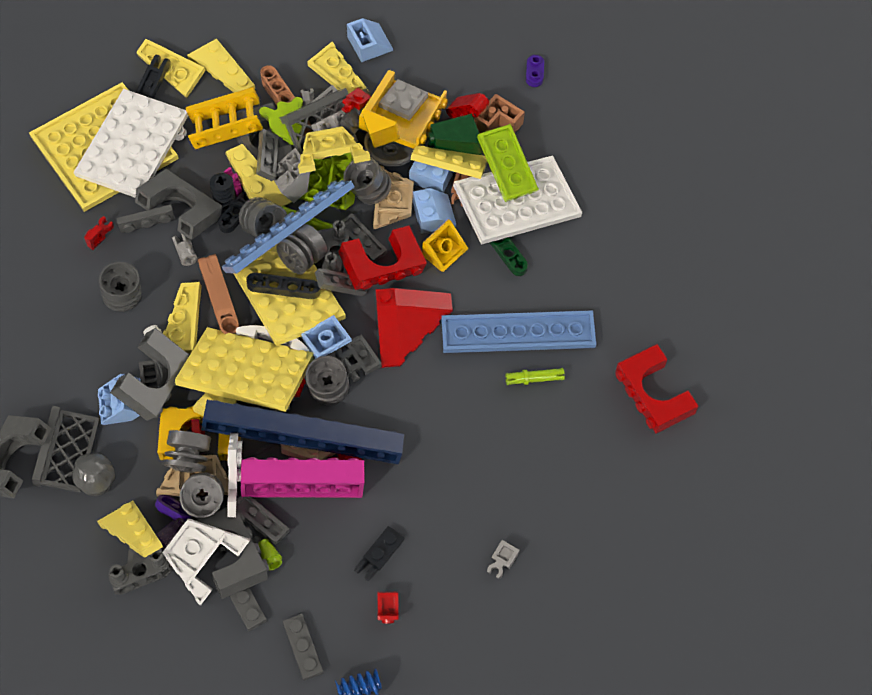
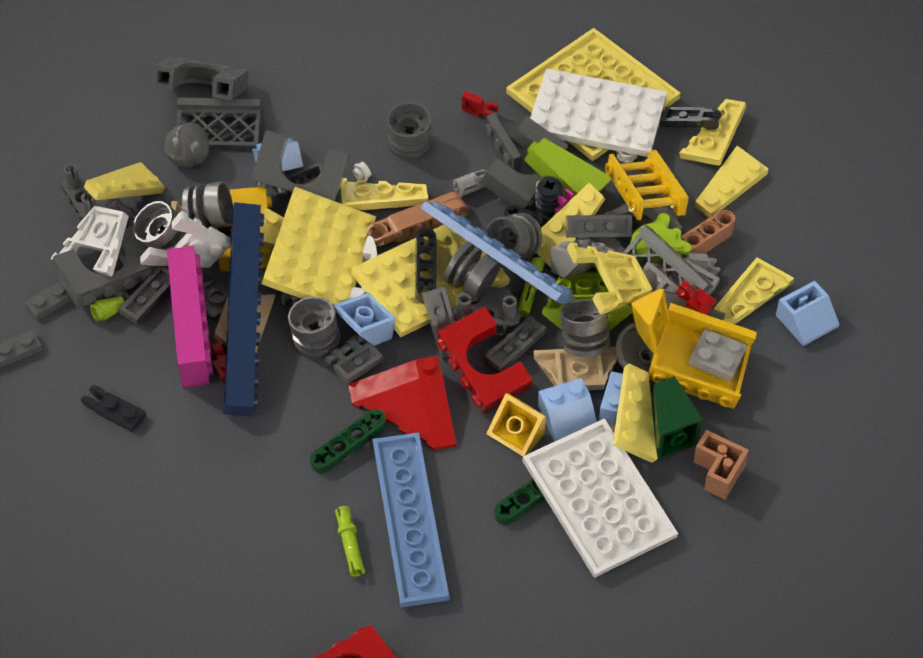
camera: 85 degrees right, 10 degrees down
(197, 171) = (570, 170): none -> lime slope
(388, 606) = (48, 420): red bracket -> none
(437, 370) = (345, 438): none -> dark green beam
(468, 104) = (722, 423): red beam -> none
(504, 556) = (109, 529): light grey plate -> none
(507, 162) = (640, 469): lime tile -> none
(535, 67) = (816, 506): dark purple plate -> none

